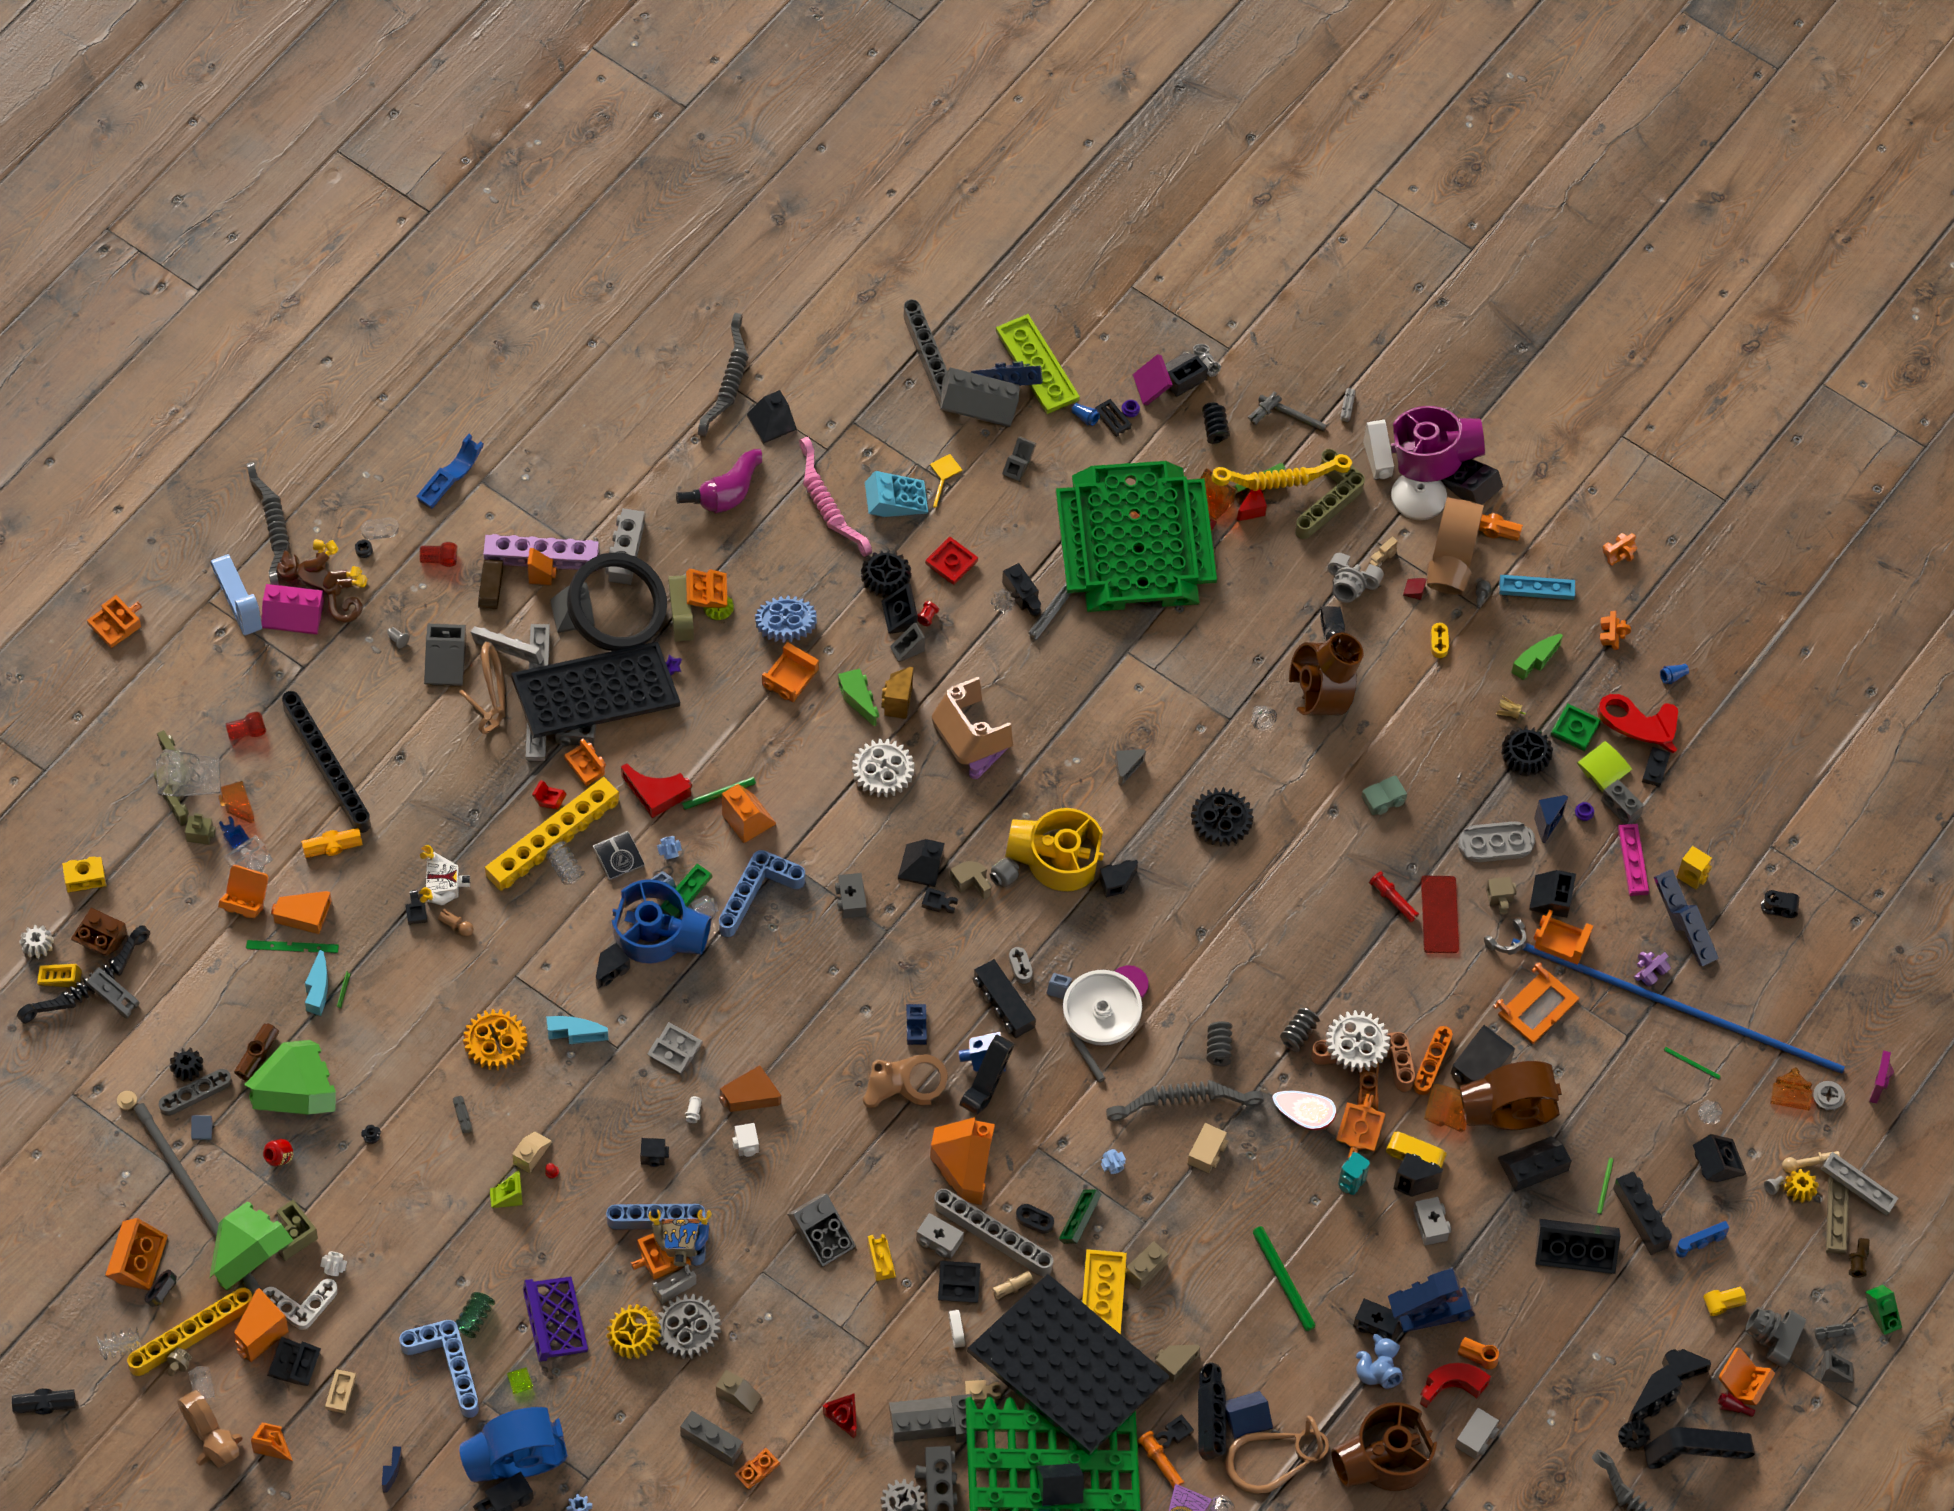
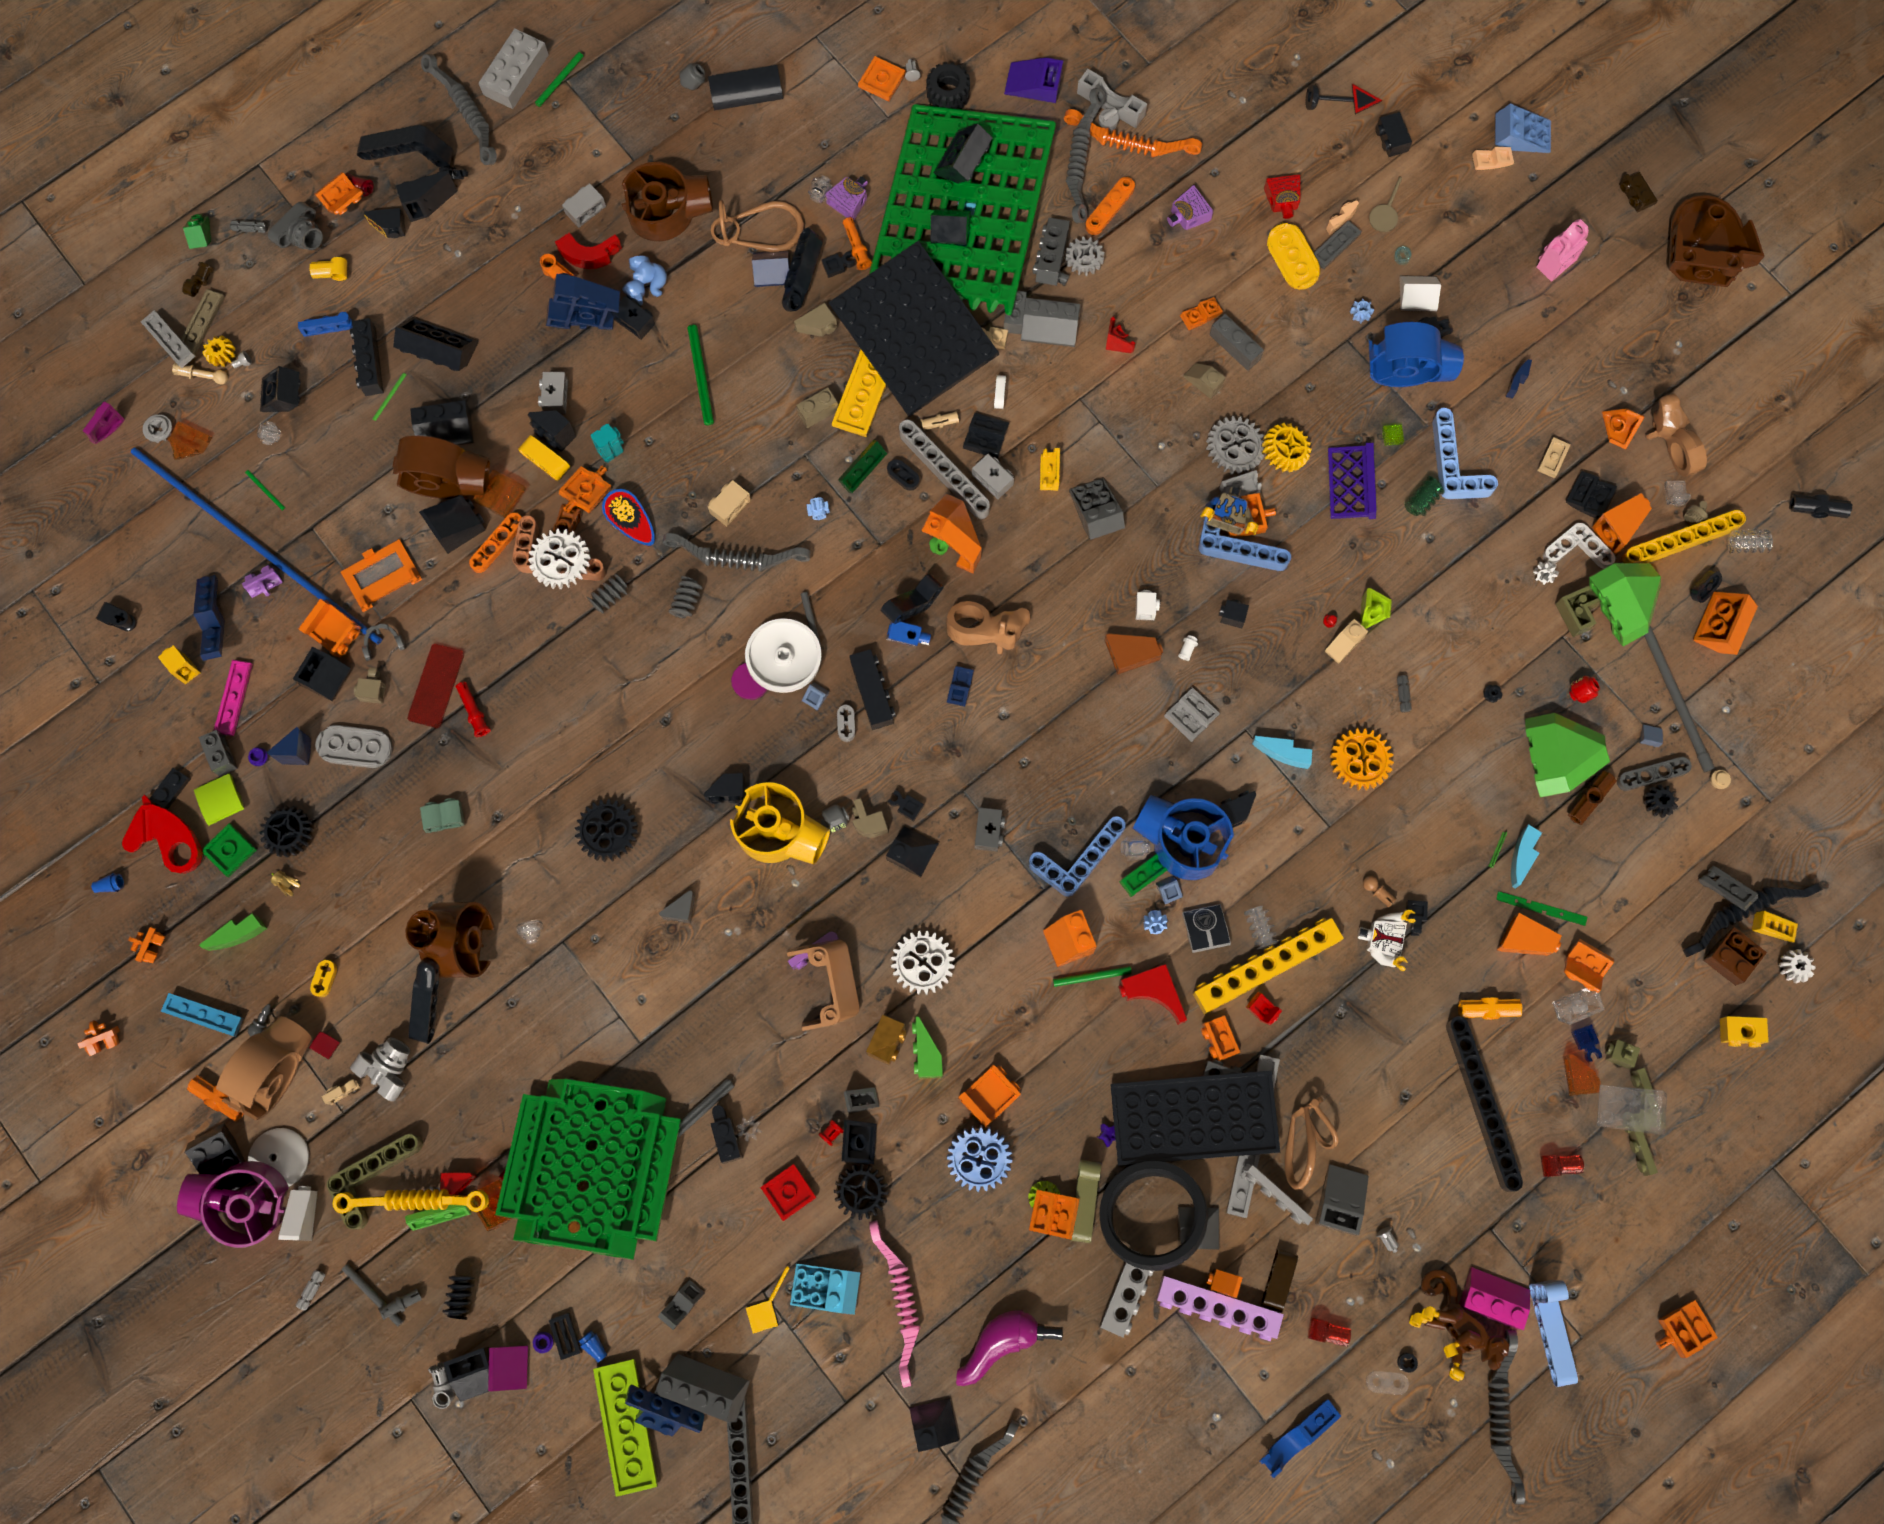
camera: 160 degrees left, 15 degrees up
(1836, 1368) = (263, 192): dark grey slope -> none

